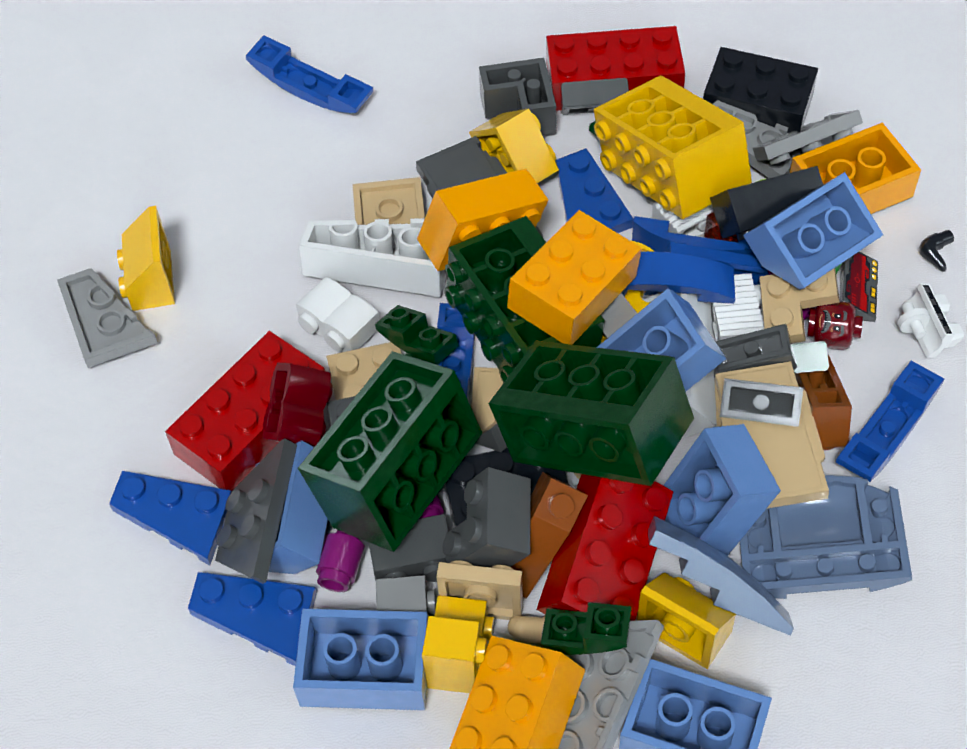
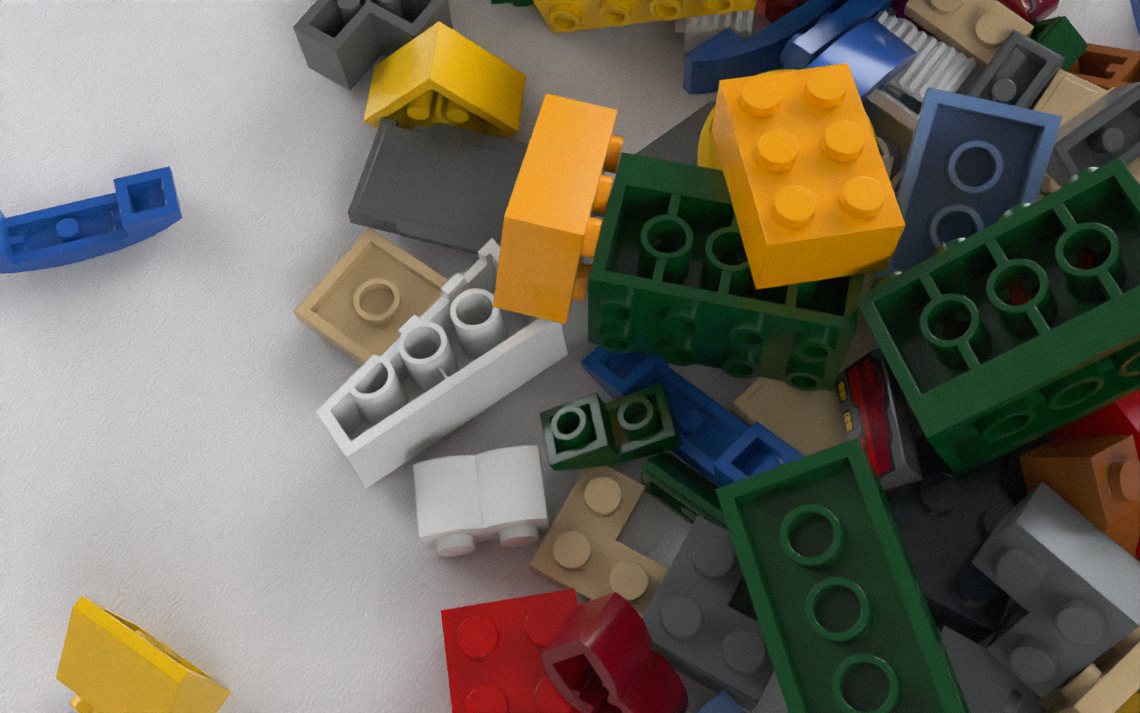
camera: 45 degrees left, 10 degrees up
(588, 190) = (592, 76): blue wing -> none

